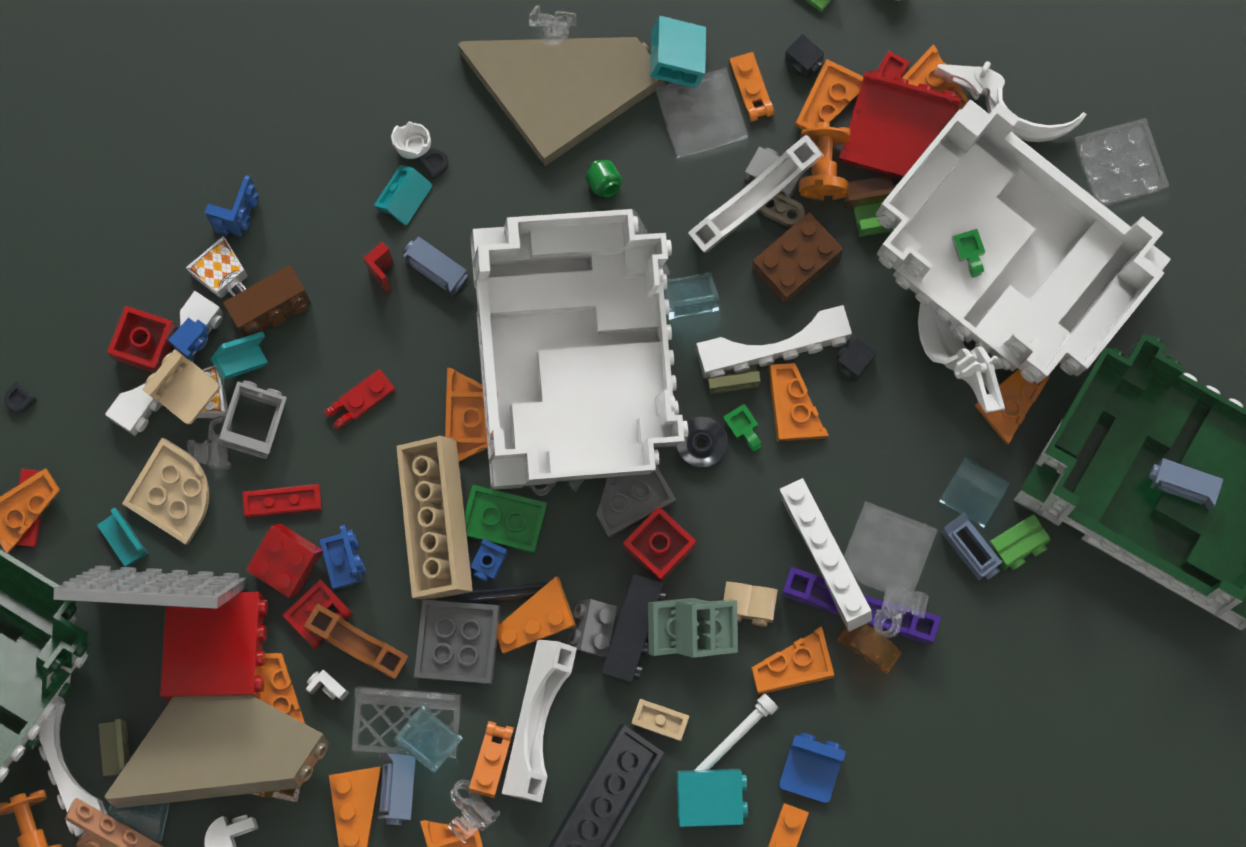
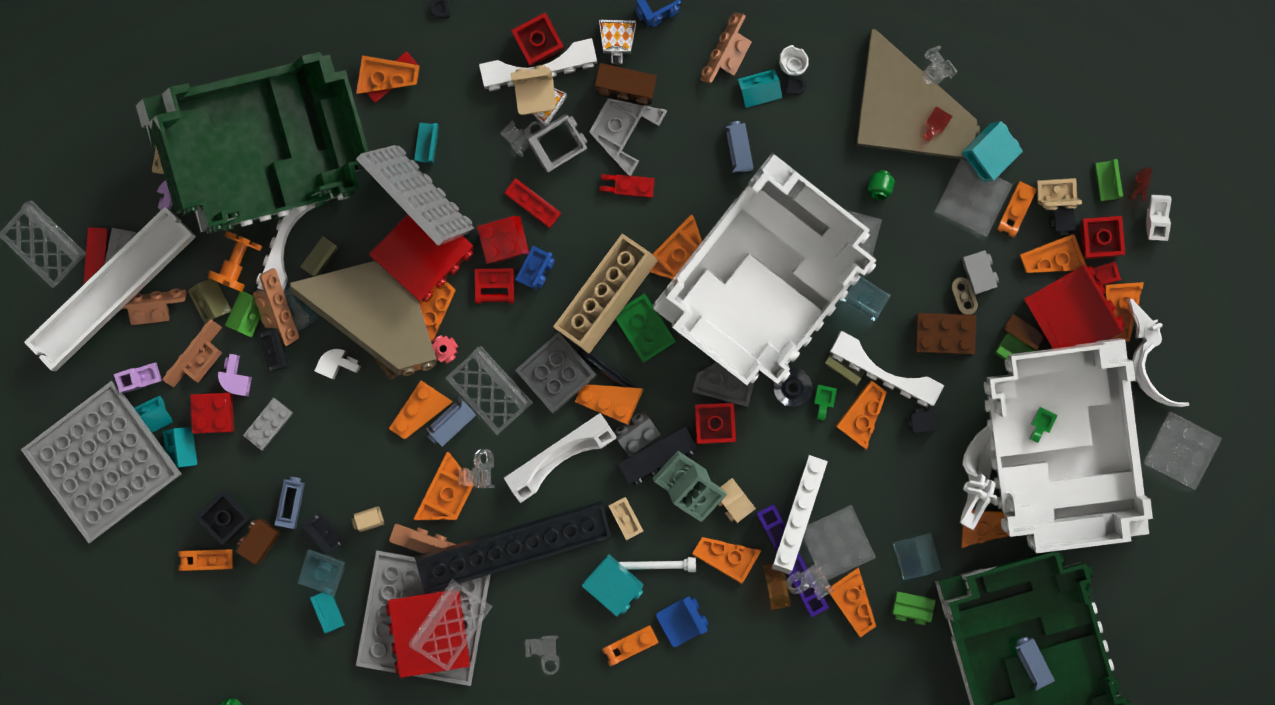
camera: 40 degrees right, 10 degrees up
(171, 492) = (476, 142): tan plate -> none
(189, 337) = (564, 65): blue brick -> none
(239, 356) = (582, 100): teal panel -> none
(296, 354) = (616, 125): none -> light grey wing
(331, 688) = (466, 333): white bracket -> none
(333, 724) = (451, 351): none -> coral brick
(340, 185) = (728, 51): none -> nougat bracket
(355, 642) = (500, 322): dark orange arch -> none
(377, 262) = (708, 116): red panel -> none
(428, 739) = (490, 412): clear light blue slope -> none
(490, 571) = (621, 344): blue brick -> none
(491, 760) = (514, 454): orange plate -> none
(600, 70) = (937, 121): none -> clear red plate
(756, 194) = (955, 277): white arch -> none
(772, 37) = (1057, 193): none -> tan bracket
(824, 172) = (1009, 298): orange piece -> none
(855, 37) = (1102, 237): none -> red brick
(959, 593) = (853, 601): none -> orange wing
(990, 568) = (882, 606): sand blue window -> none

